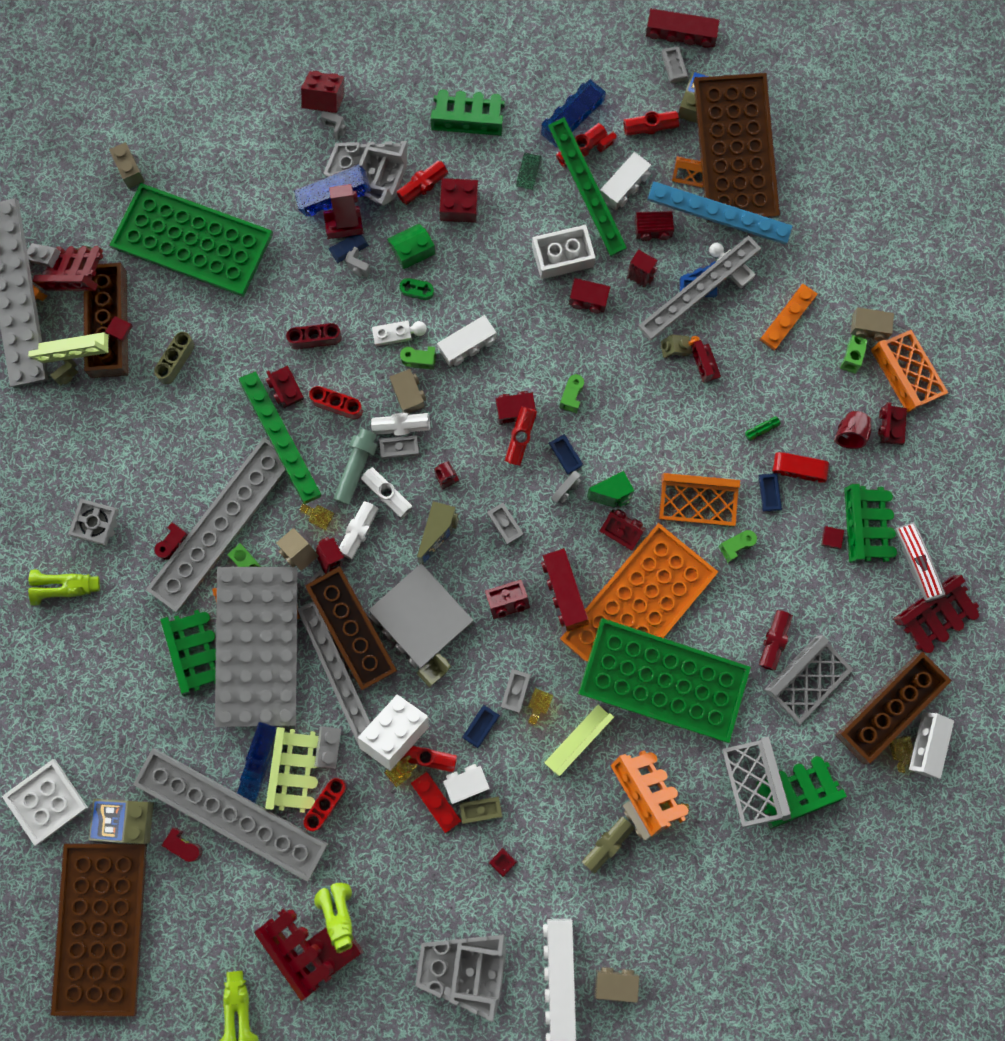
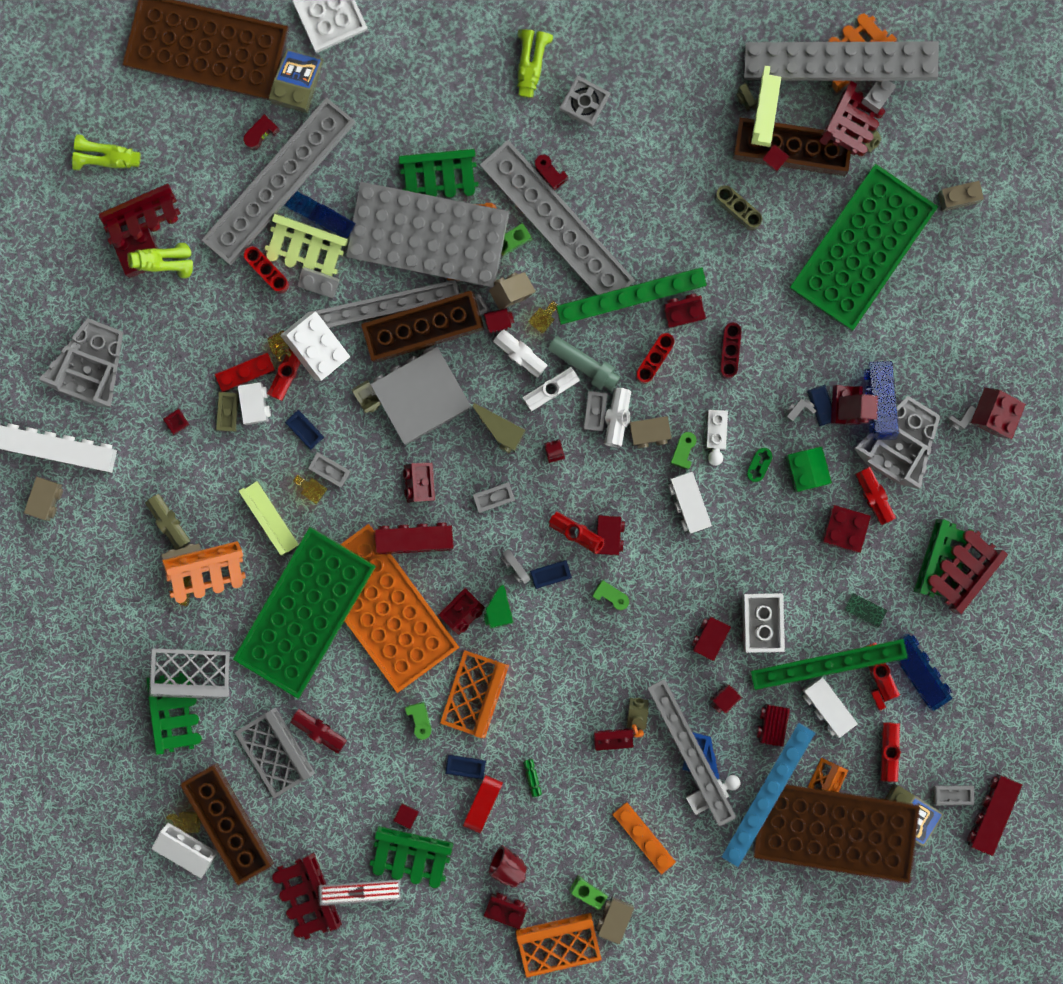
camera: 105 degrees right, 10 degrees up
(477, 81) = (970, 586): none -> dark red fence

